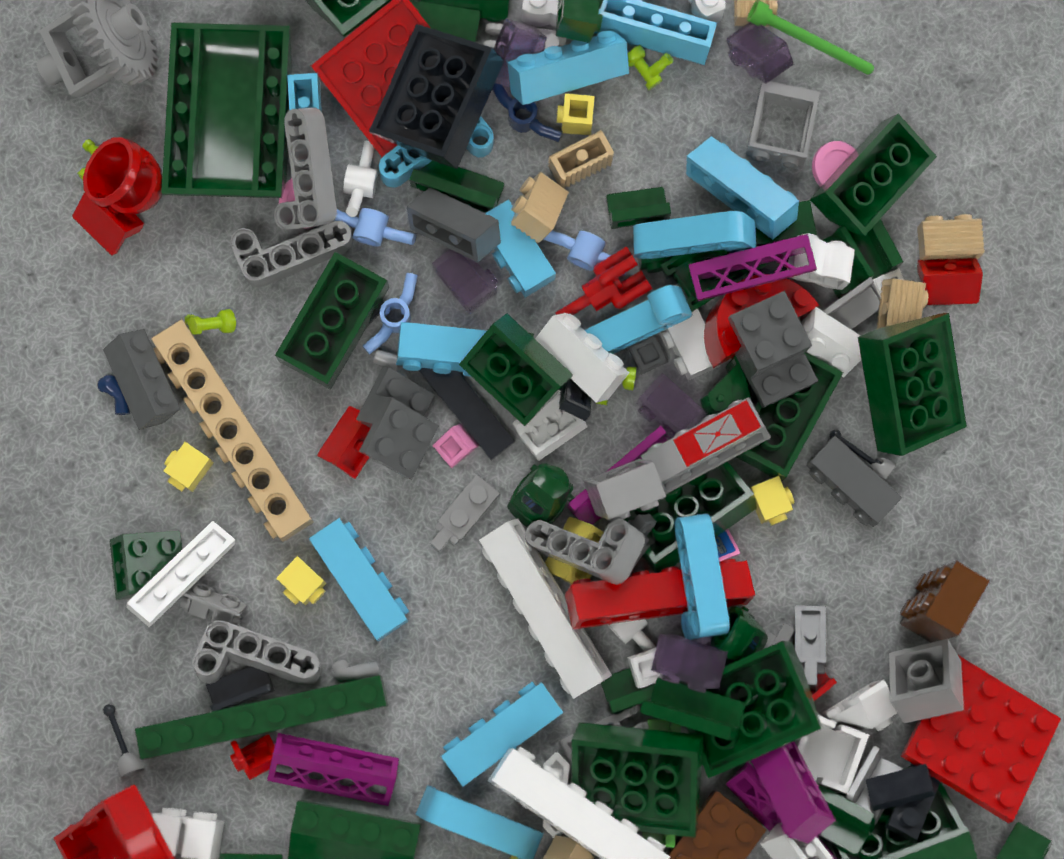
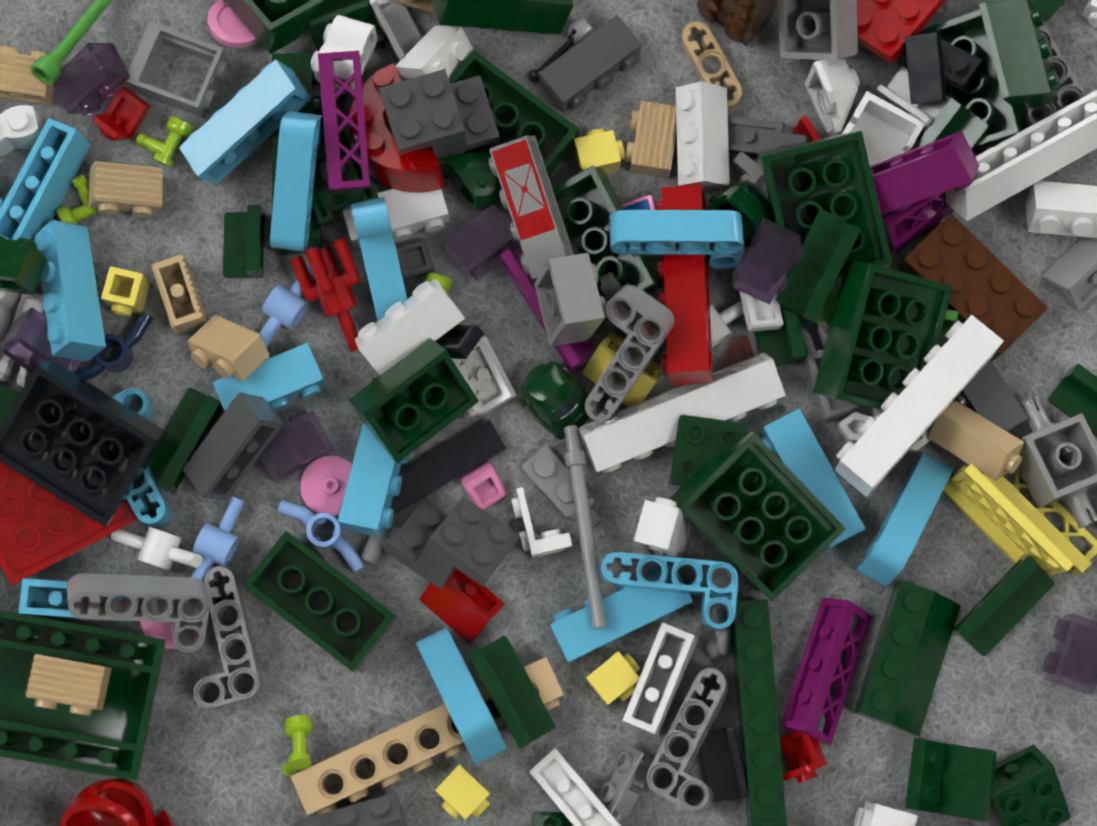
camera: 80 degrees left, 0 degrees up
(232, 123) = (68, 683): none -> tan brick
(266, 449) = (461, 696): none -> medium azure beam
(275, 492) = (512, 691): none -> dark green panel
(304, 621) = (660, 679): none -> white brick
(388, 614) = (668, 581): none -> medium azure beam
(414, 510) = (551, 541): none -> white bracket
(432, 602) = (662, 529): none -> white brick
(437, 308) = (325, 484): none -> bright pink piece
(456, 684) = (758, 514): none -> dark green slope
(486, 520) = (575, 461): none -> light grey bar
(508, 635) = (699, 443): none -> dark green bracket
(609, 654) = (738, 352): none -> clear red tile
(667, 98) = (125, 188): none -> tan brick
(709, 127) = (165, 151): none -> lime piece
(733, 85) = (122, 116): none -> red bracket
(793, 549) = (654, 139): none -> tan brick
(801, 591) = (702, 135): none -> white brick
(886, 573) = (708, 40): none -> tan beam

